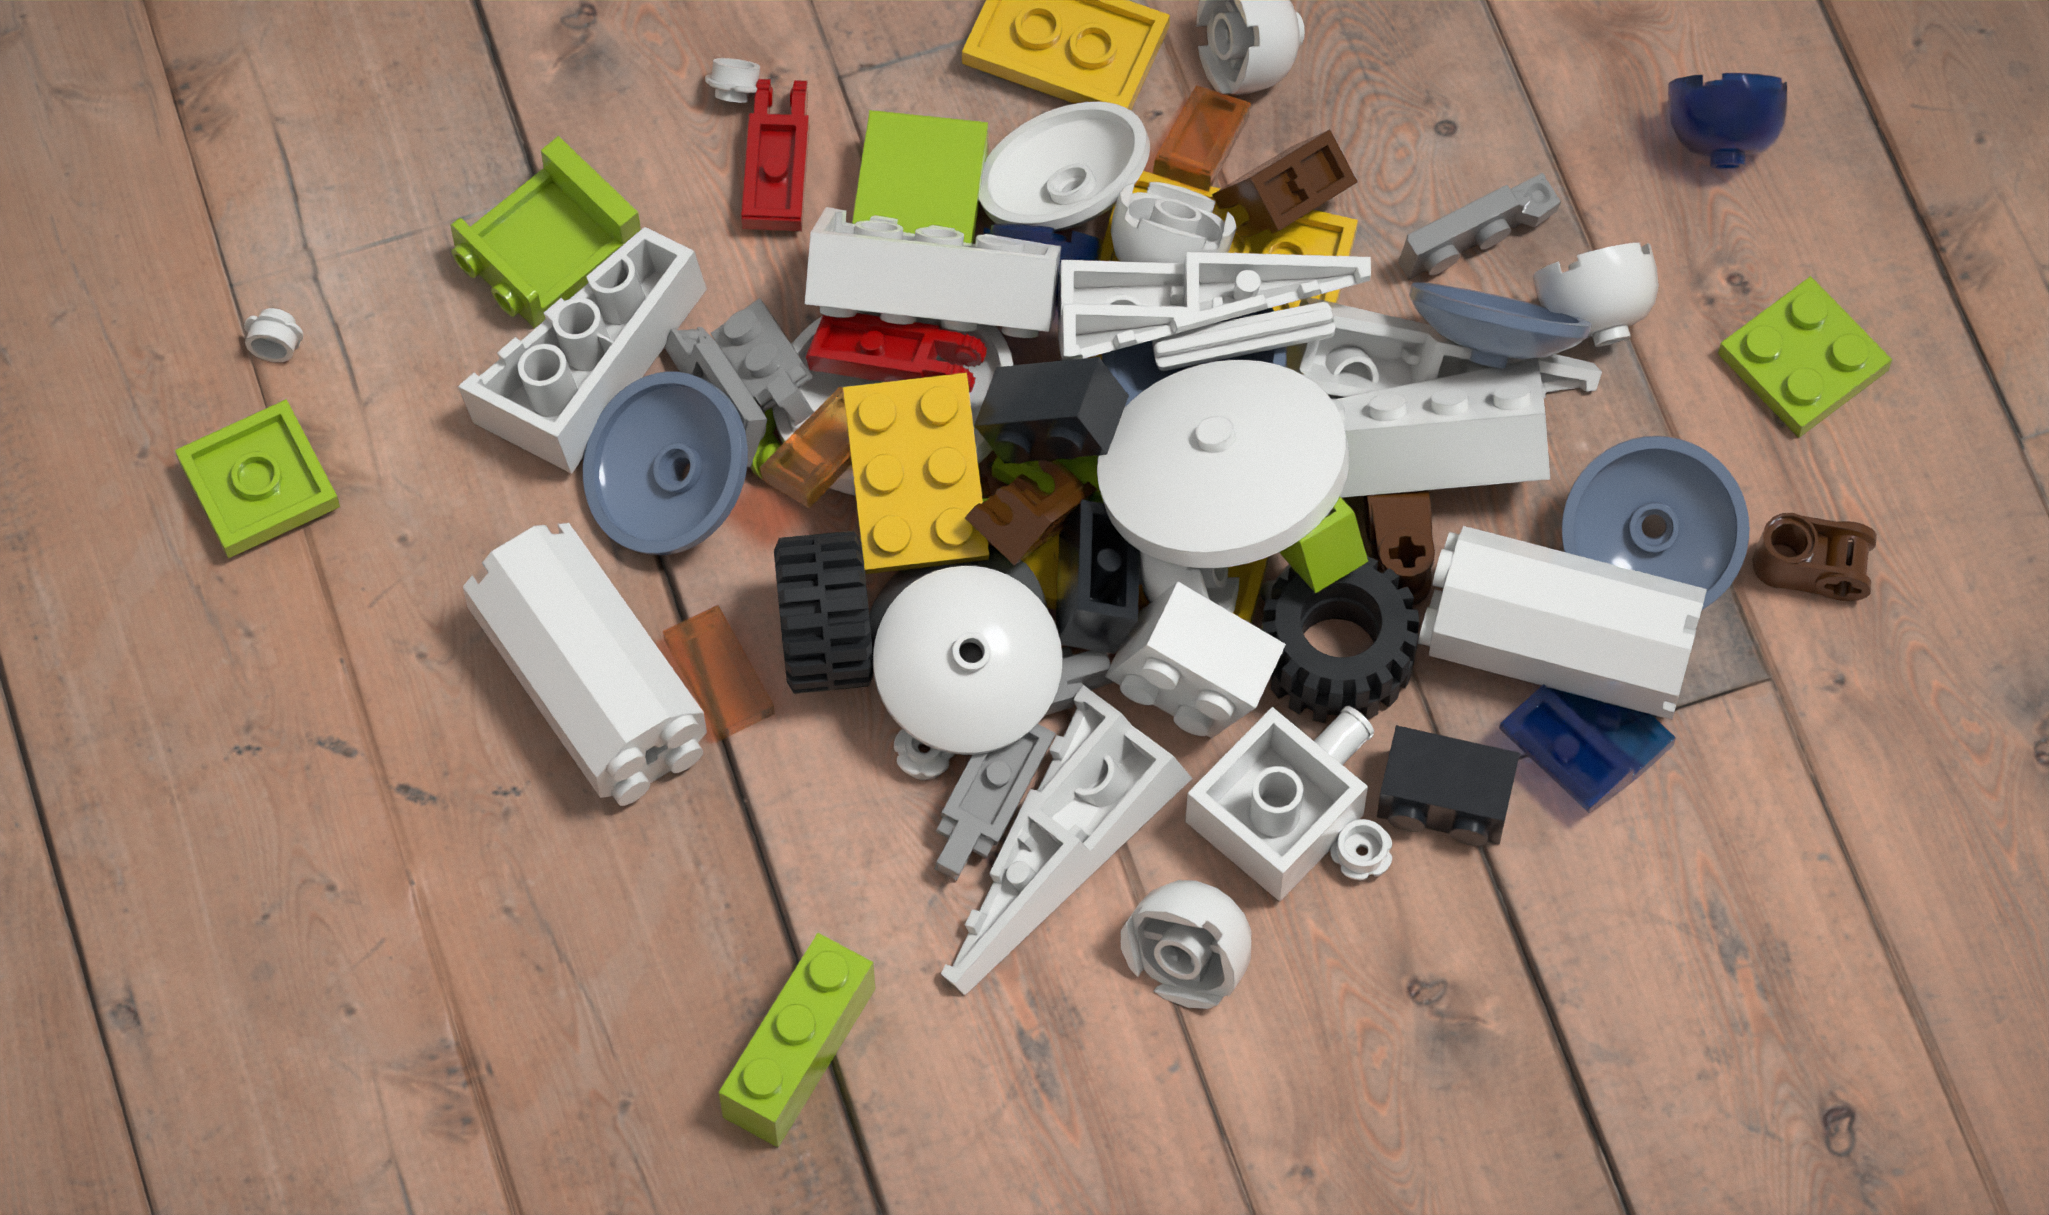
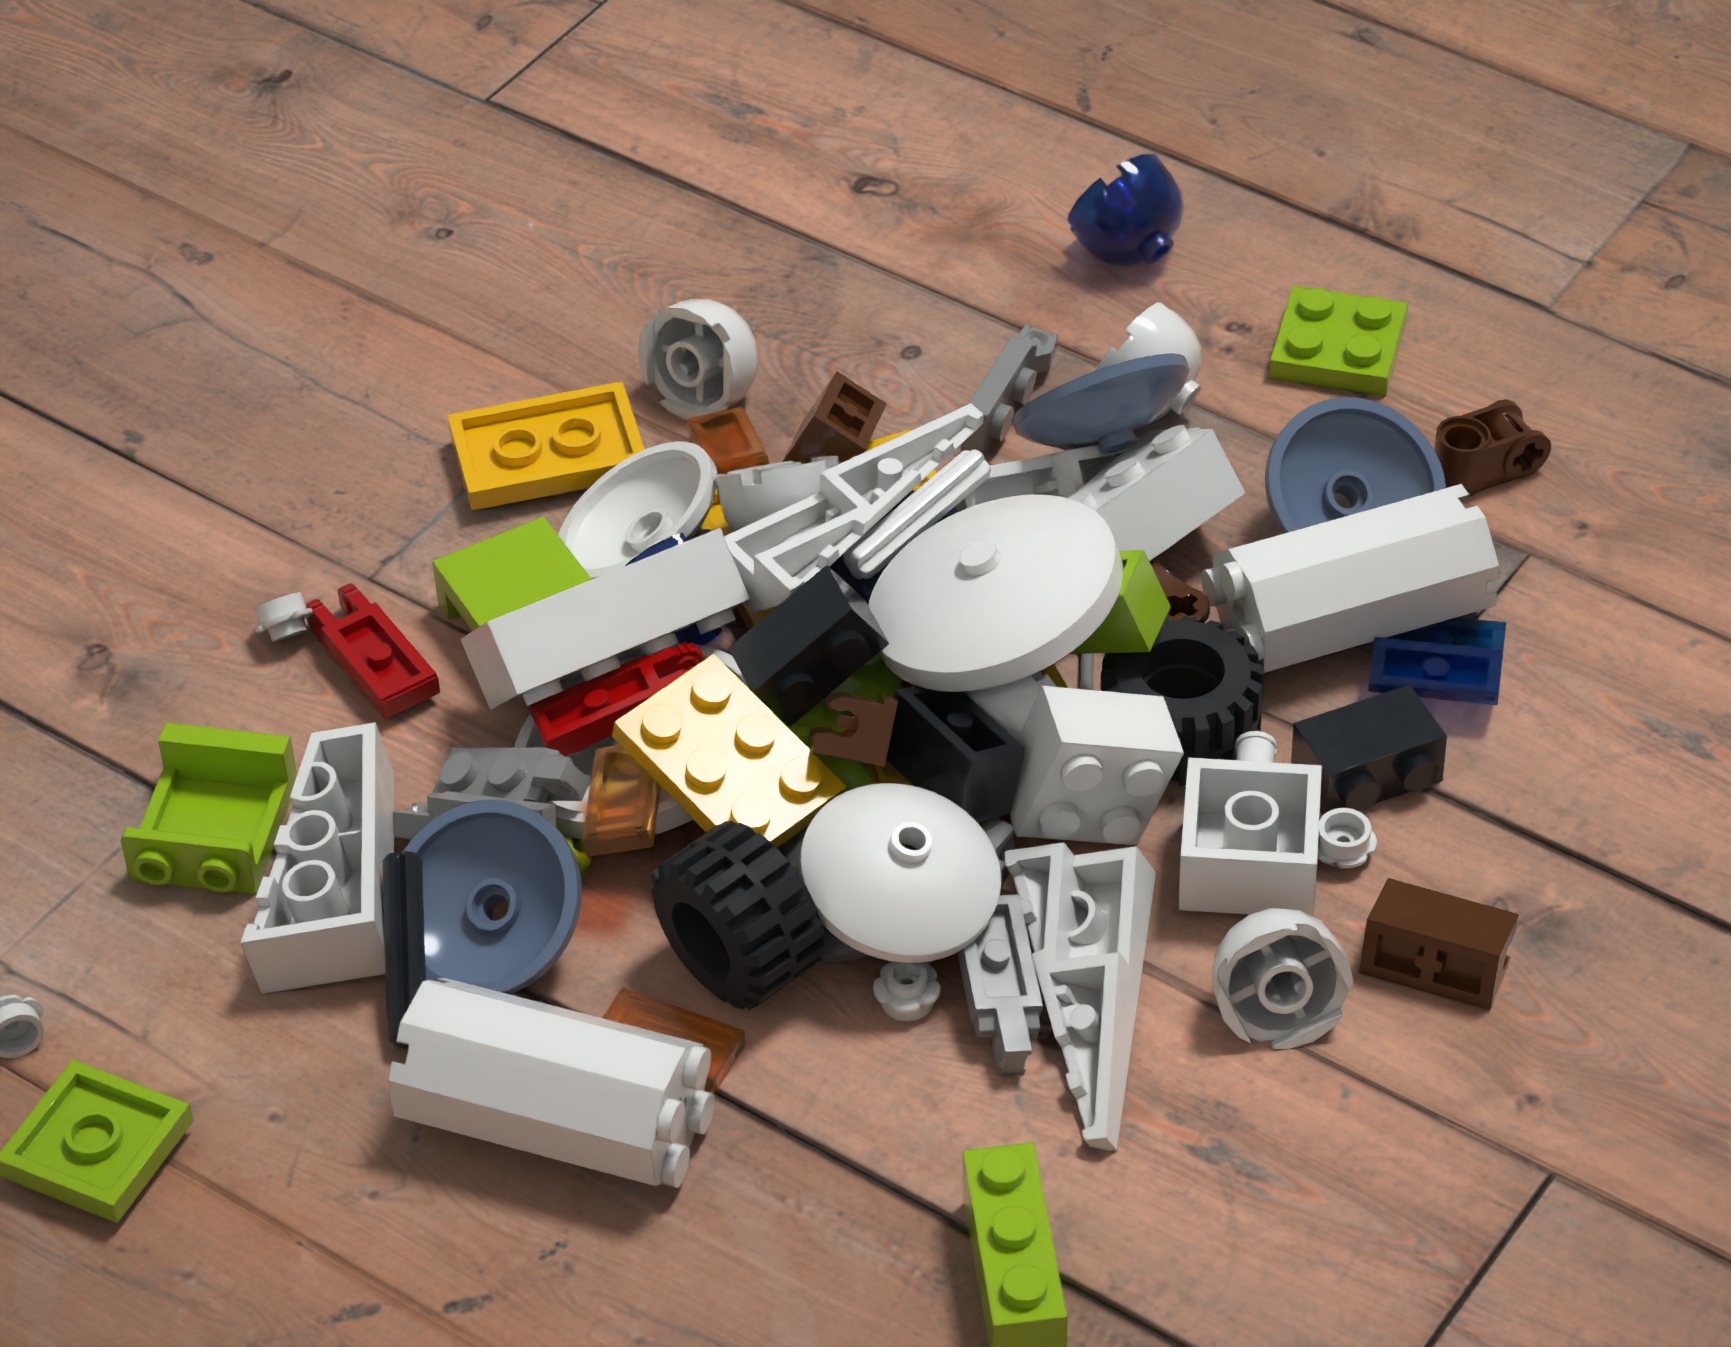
camera: 35 degrees left, 20 degrees down
(584, 458) = (402, 936): none -> black axle
(1346, 993) = (1438, 943): none -> reddish brown hinge

